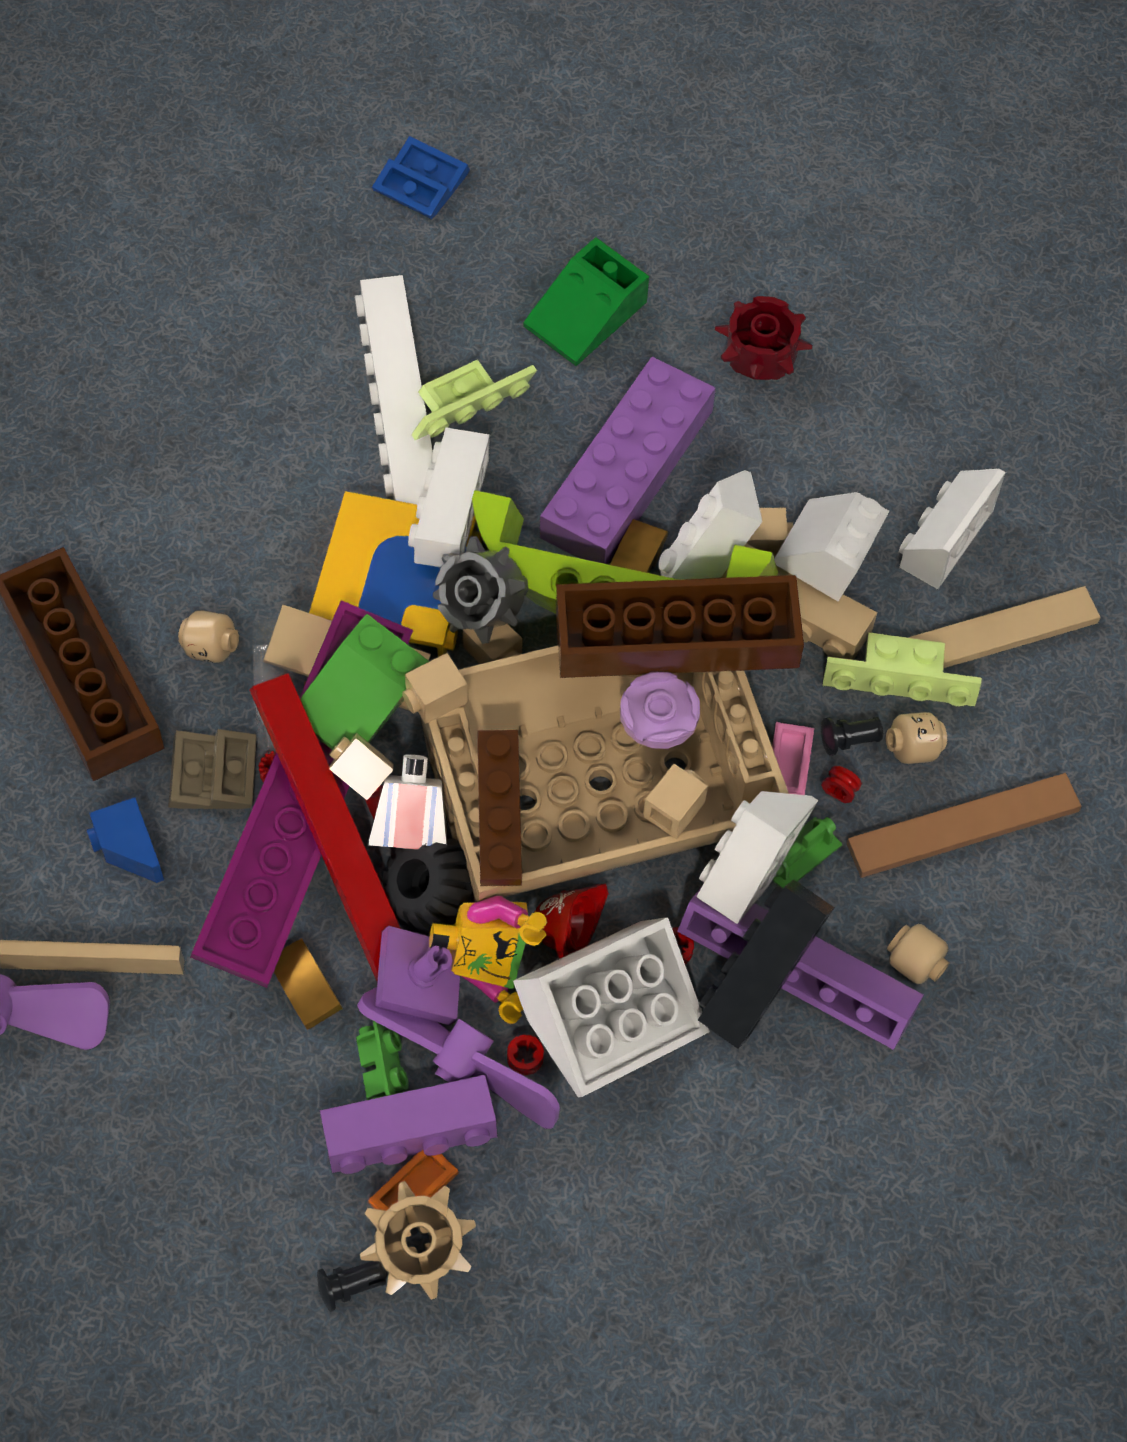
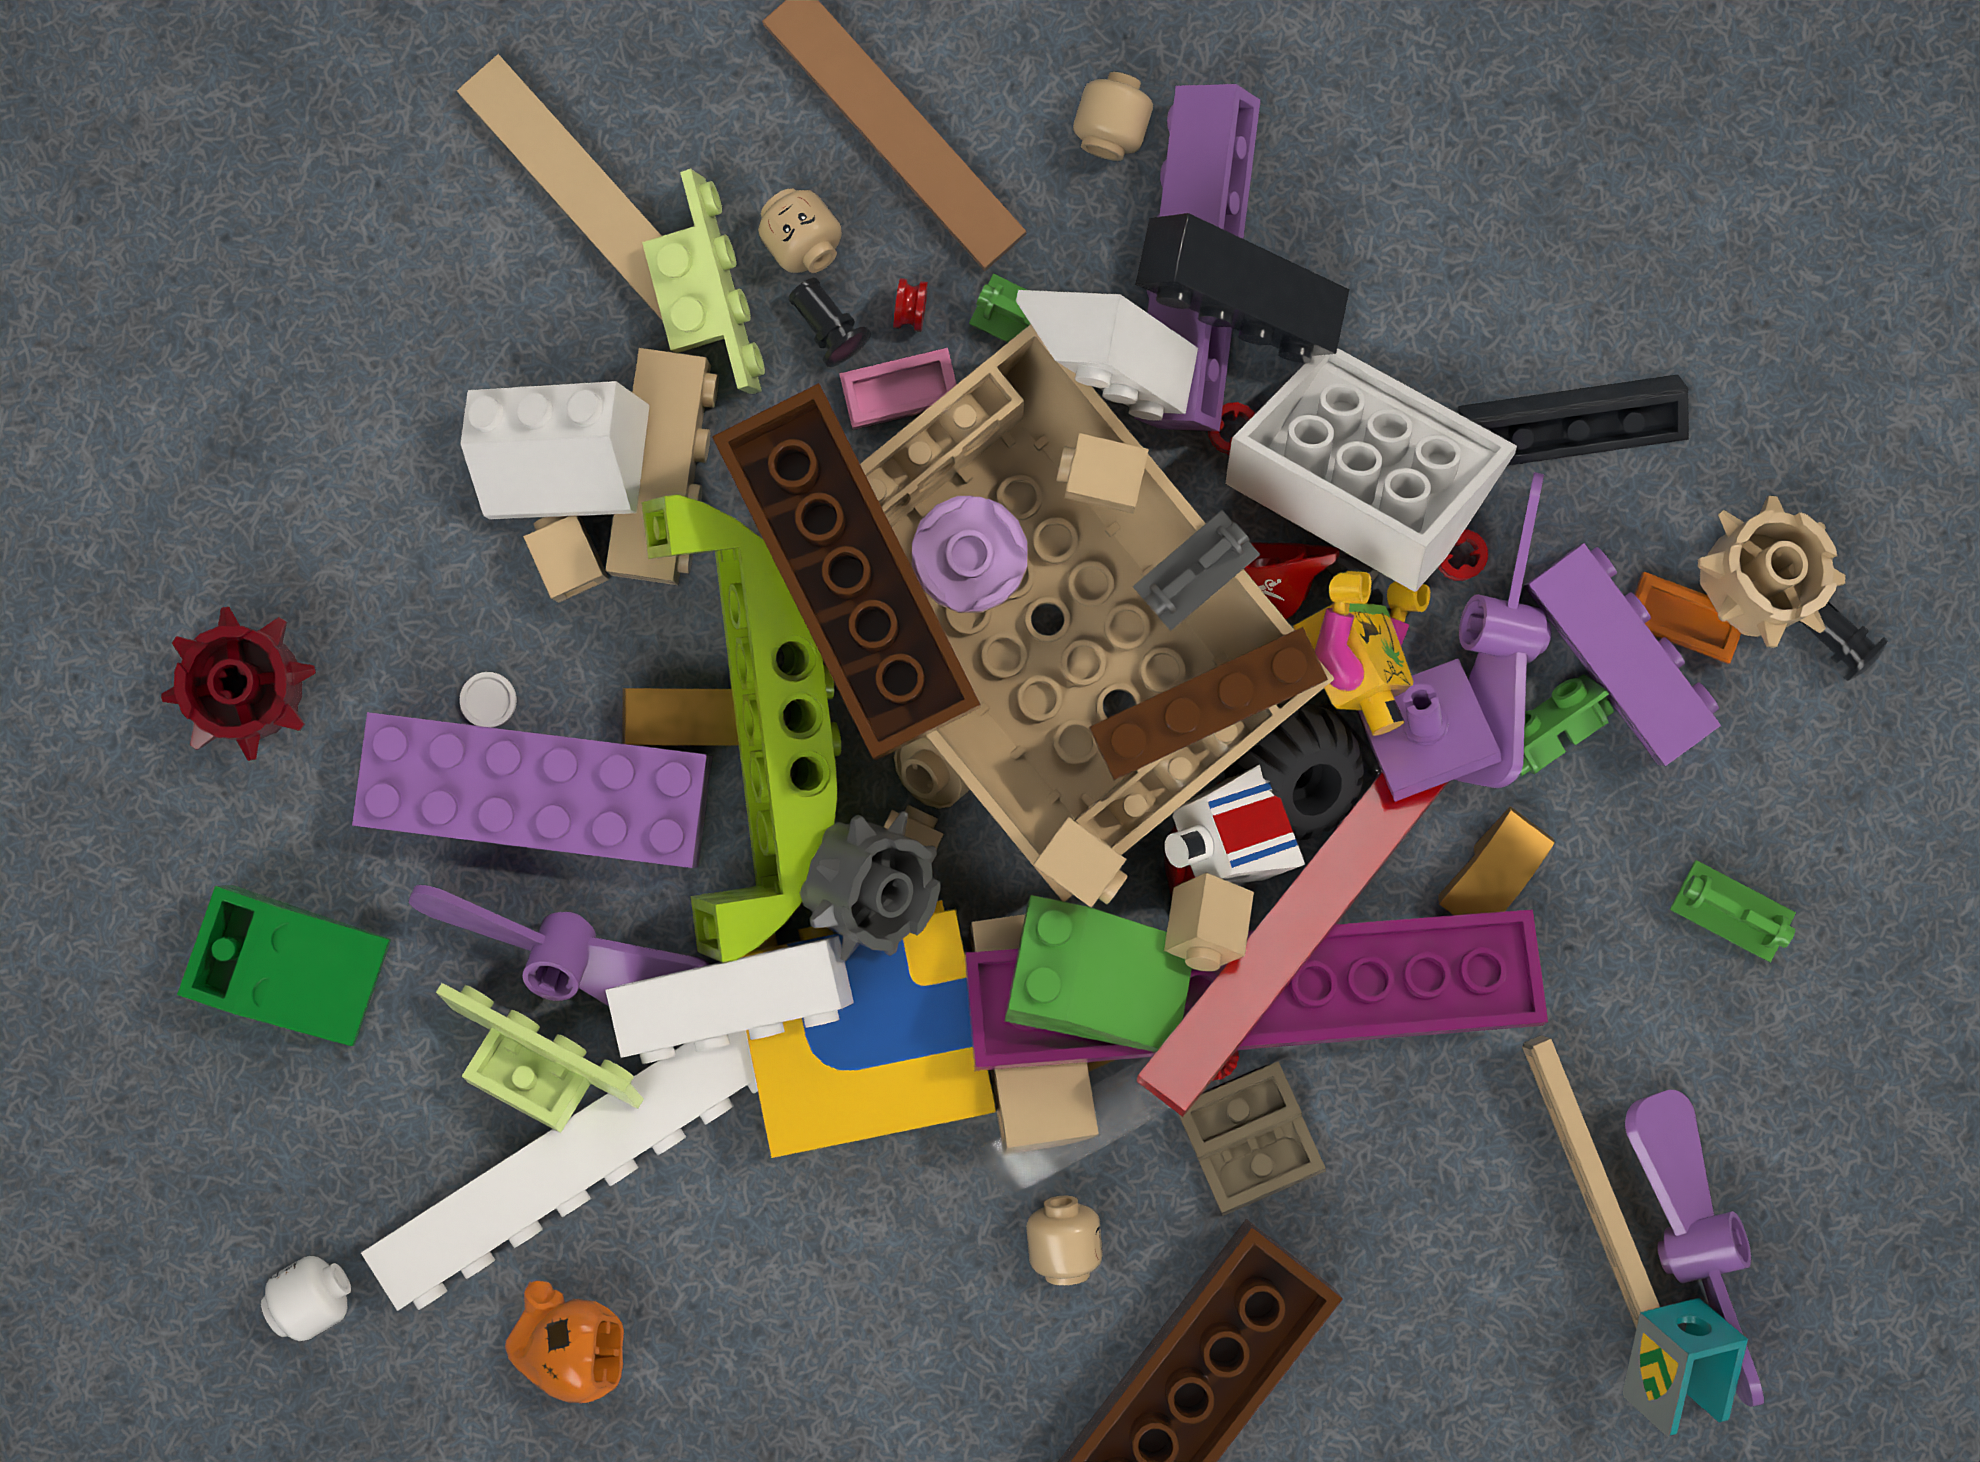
camera: 110 degrees left, 25 degrees up
(125, 839) = (1407, 1196): blue slope -> none
(200, 1128) = (1734, 911): none -> bright green hinge
(292, 360) = (567, 1346): none -> orange piece
(391, 246) = (305, 1298): none -> white head
(421, 177) = (151, 1317): blue slope -> none
(523, 438) = (563, 951): none -> medium lavender piece
(583, 1172) = (1588, 418): none -> black slope
(588, 835) = (1196, 570): none -> dark grey hinge
(695, 467) = (488, 699): none -> white piece
(707, 541) = (637, 605): white slope -> none
(950, 525) = (444, 301): white slope -> none

